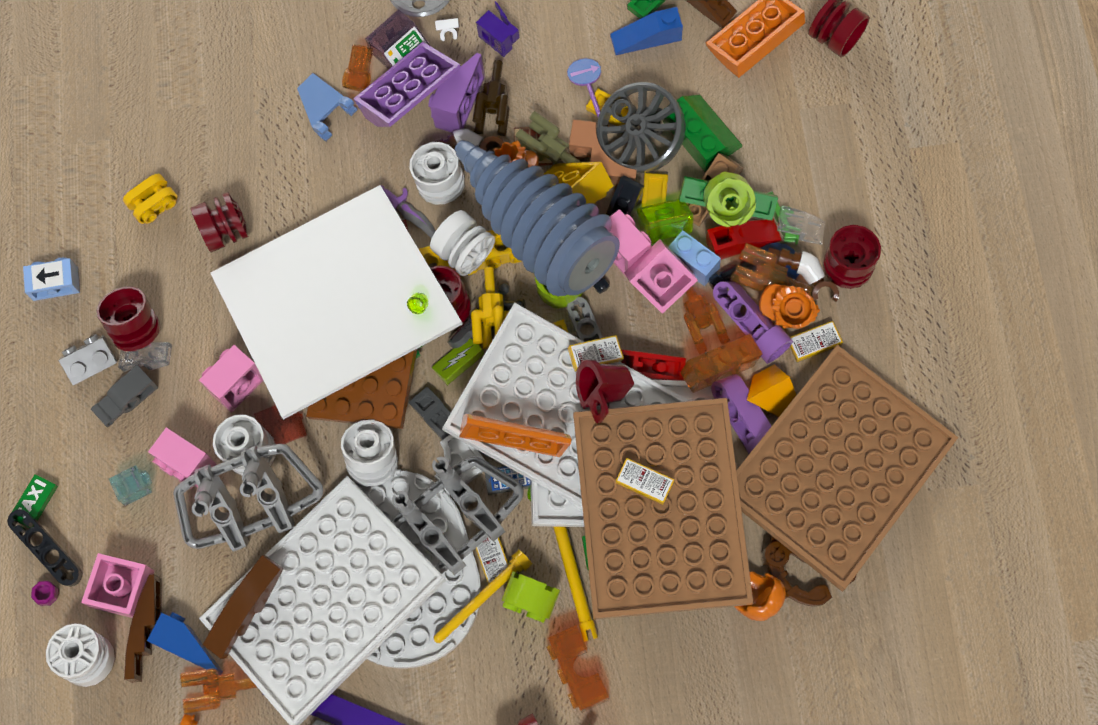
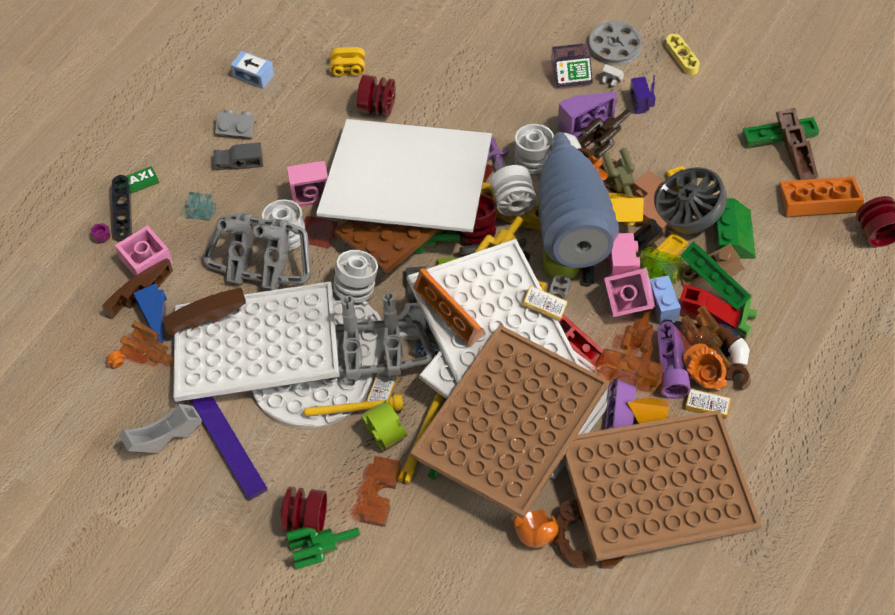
camera: 30 degrees right, 15 degrees down
(80, 655) = (89, 275): white wheel -> none
(128, 318) = (276, 113): dark red wheel -> none
(152, 356) = (272, 143): clear slope -> none
(178, 456) = (239, 199): bright pink brick -> none
(319, 101) = (496, 69): medium blue flag -> none
(357, 74) = (531, 68): clear orange piece -> none
(405, 85) = (553, 86): medium lavender slope -> none
(414, 303) = (454, 202): clear neon green hinge -> none
(584, 73) = (681, 152): piece -> none
(601, 385) = (532, 321): dark red container -> none
(644, 481) = (511, 393): tile -> none
(650, 31) = (747, 153): blue slope -> none
(729, 212) = (702, 266): lime brick -> none
(801, 223) = (759, 328): clear slope -> none
(851, 256) = (775, 364): dark red wheel -> none

